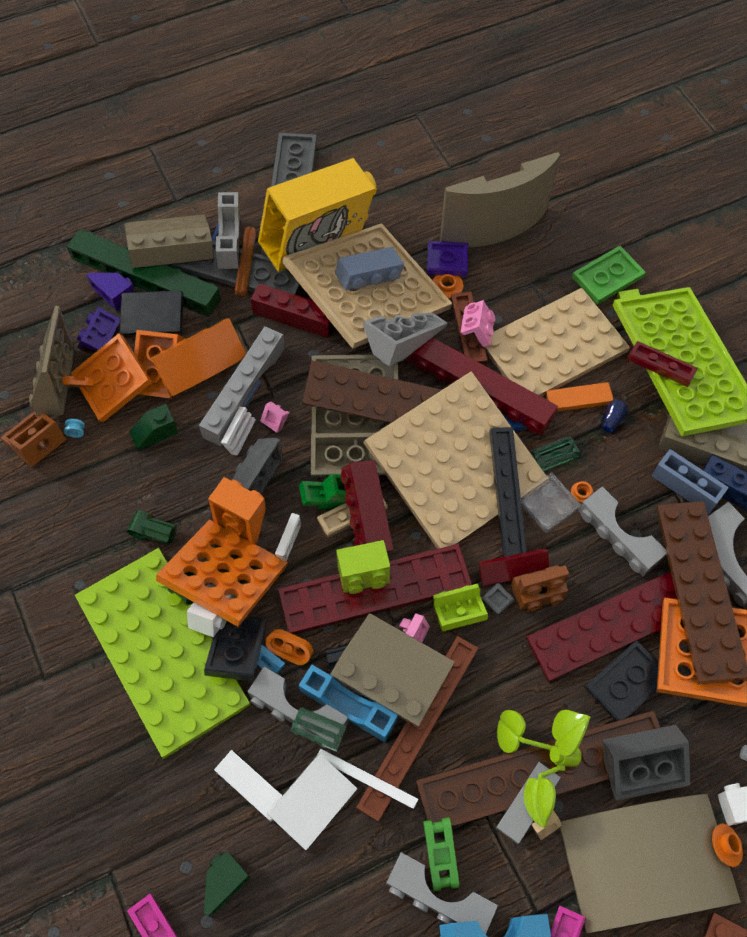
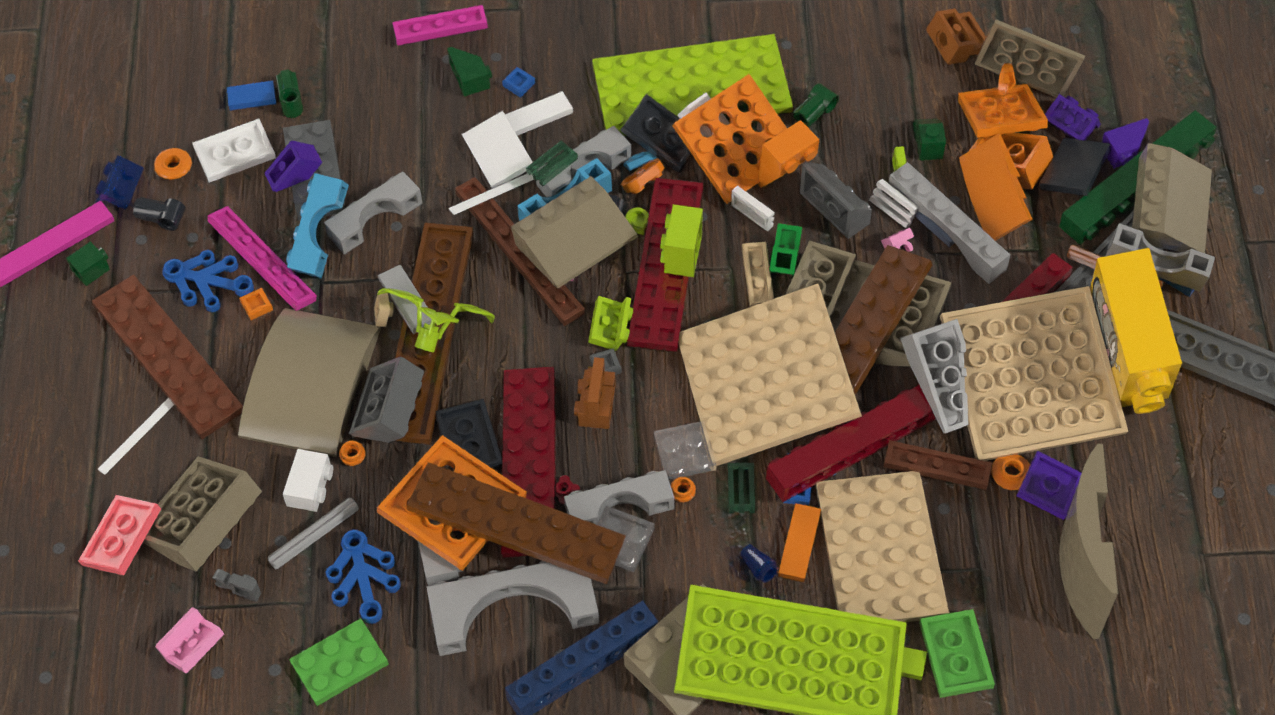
camera: 115 degrees right, 5 degrees down
(74, 428) = (957, 72): medium azure bush -> none
(191, 441) = (898, 158): none -> lime tile
(214, 824) = (518, 82): none -> blue tile
(337, 635) = (638, 219): none -> lime tile
(366, 503) = (747, 270): dark red brick -> none
(369, 268) = (1043, 369): sand blue brick -> none
(416, 628) = (607, 278): bright pink tile -> none
(441, 854) = (403, 221): bright green plate -> none
(480, 320) = (934, 467): bright pink bracket -> none
(507, 491) = (708, 407): black tile -> none
(511, 566) = (629, 387): dark red tile -> none
(628, 574) = (564, 482): none -> dark red plate
(643, 517) = (637, 535): none -> clear plate
(662, 363) = (788, 613): dark red tile -> none
(689, 480) = (646, 585): sand blue brick -> none
(706, 778) = (352, 447): none -> orange plate
(727, 845) = (272, 443): orange piece -> none

